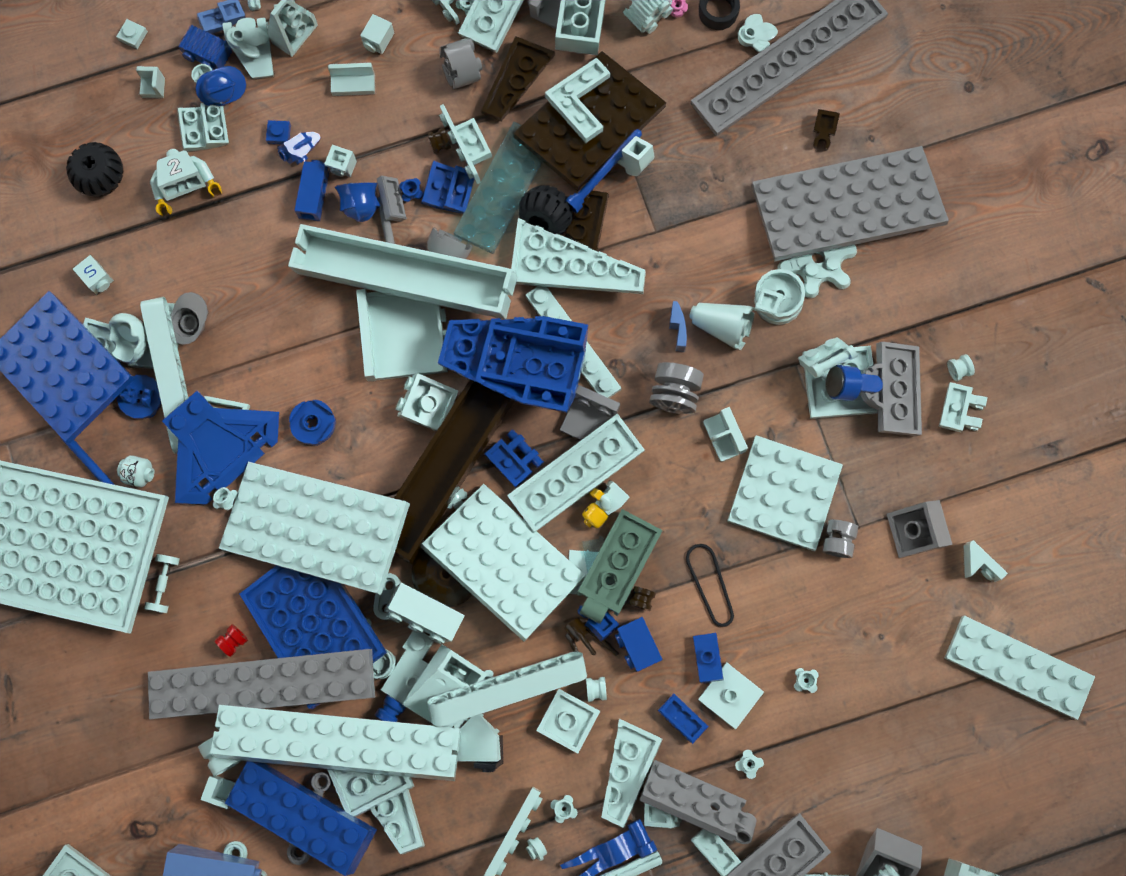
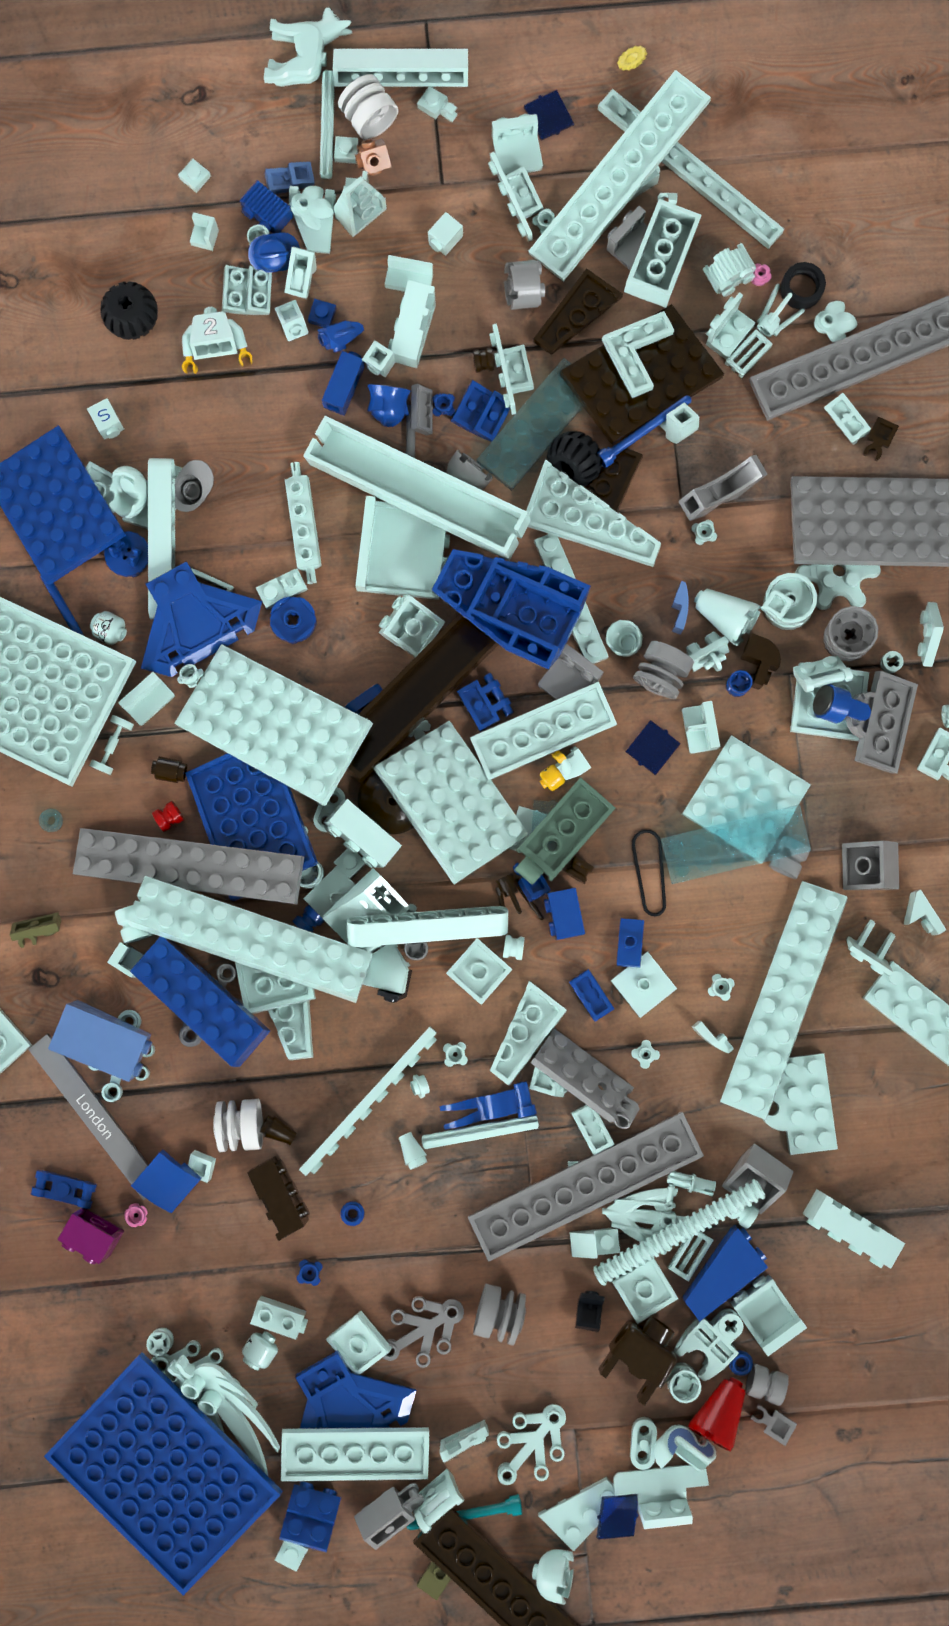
camera: 10 degrees right, 5 degrees up
(110, 671) = (45, 815): none -> clear light blue plate
(120, 782) = (34, 927): none -> olive plate
(187, 530) = (147, 699): none -> light aqua panel
(223, 594) = (169, 770): none -> dark brown brick
(249, 98) = (300, 272): none -> light aqua slope
(251, 144) = (292, 320): none -> light aqua bracket
(300, 390) = (283, 586): none -> light aqua plate
(302, 329) = (303, 523): none -> light aqua plate
(365, 121) = (413, 323): none -> light aqua wedge
(395, 484) = (364, 699): none -> blue beam
(500, 716) = (416, 951): none -> light grey wheel
(632, 367) = (624, 638): none -> light aqua hair
(660, 61) = (729, 328): none -> light aqua bracket
(676, 94) = (736, 367): none -> light aqua tile
(683, 245) = (704, 526): none -> light aqua plate
(684, 464) = (652, 747): none -> clear blue piece
(693, 206) = (723, 489): none -> light grey arch
(696, 48) = (769, 323): none -> light aqua plant
(717, 364) = (710, 655): none -> light aqua hips
(753, 381) = (742, 680): none -> blue wheel
(767, 352) = (765, 655): none -> dark brown brick
(786, 538) = (736, 844): none -> clear light blue plate
(791, 117) = (847, 418): none -> light aqua hinge
(817, 735) = (719, 1042): none -> light aqua slope
(846, 301) = (860, 624): none -> light grey wheel
(869, 680) = (784, 1000): none -> light aqua plate
(896, 329) = (892, 654): none -> light aqua bush
(913, 777) = (805, 1106): none -> light aqua plate
(920, 294) = (932, 633): none -> light aqua plate
(949, 618) = (877, 961): none -> light aqua plate

